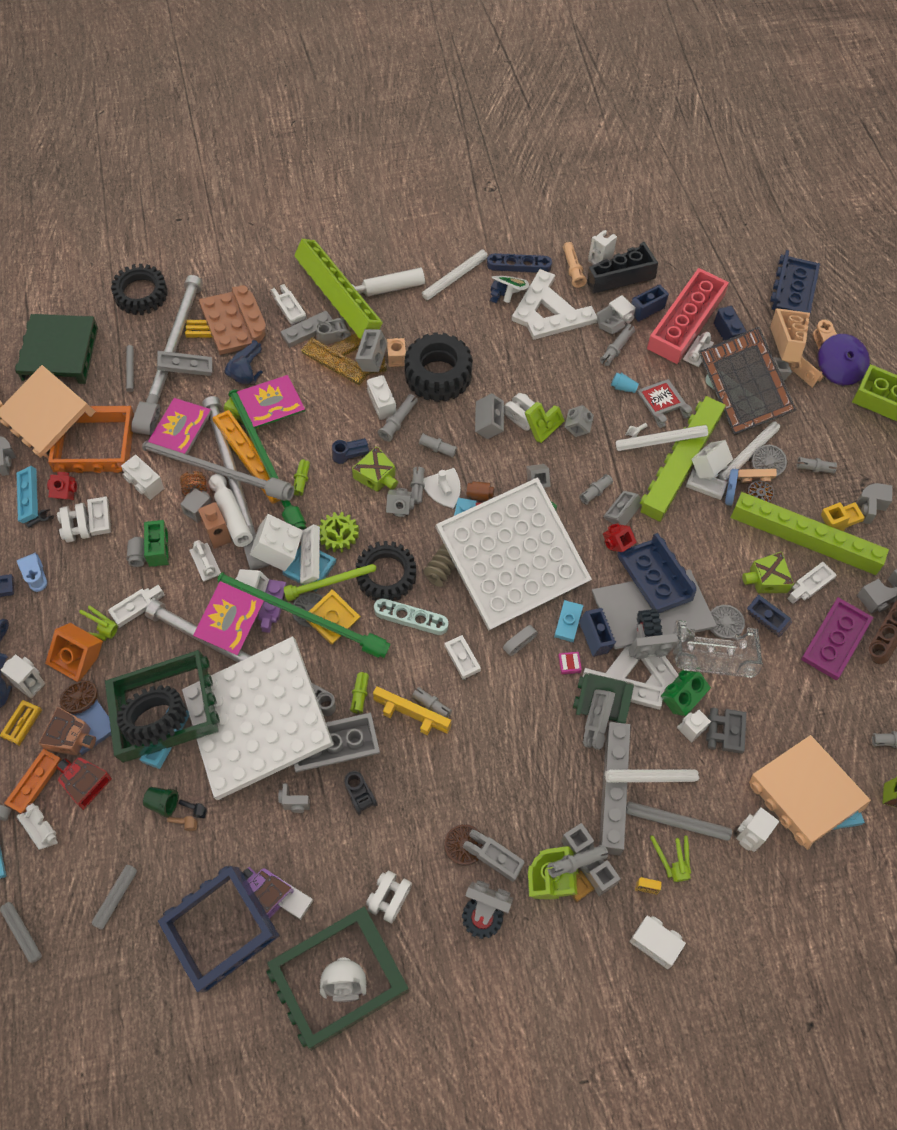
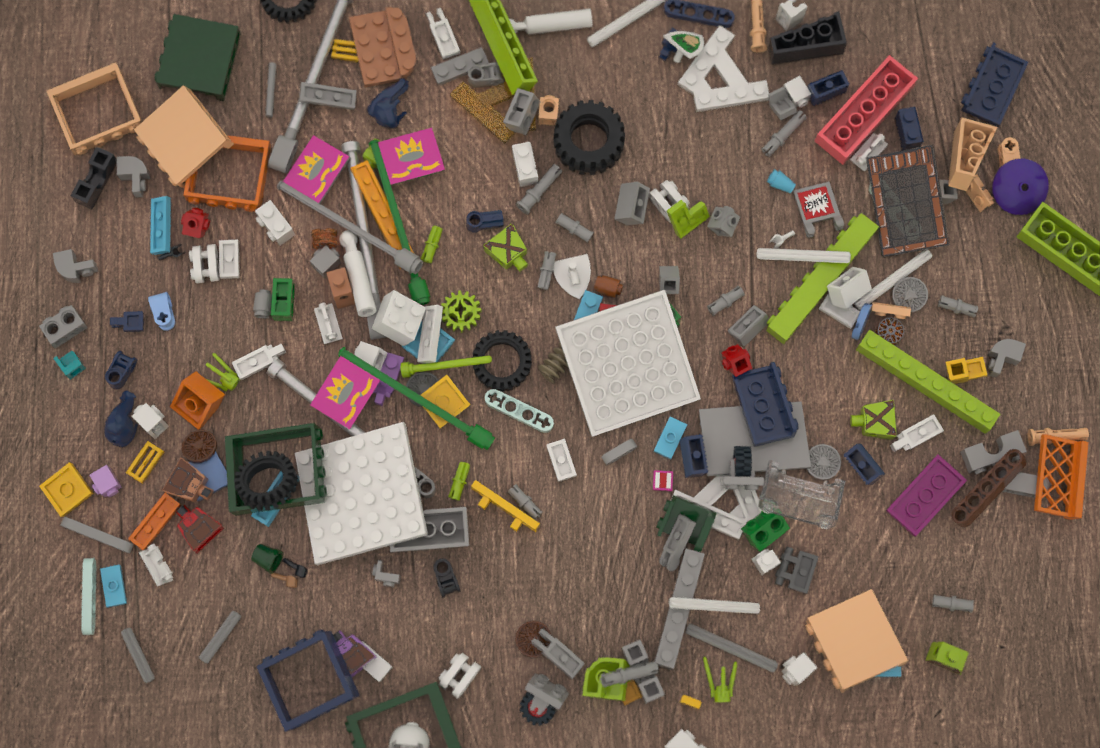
camera: 10 degrees right, 15 degrees up
(394, 501) = (525, 288): light grey brick -> none

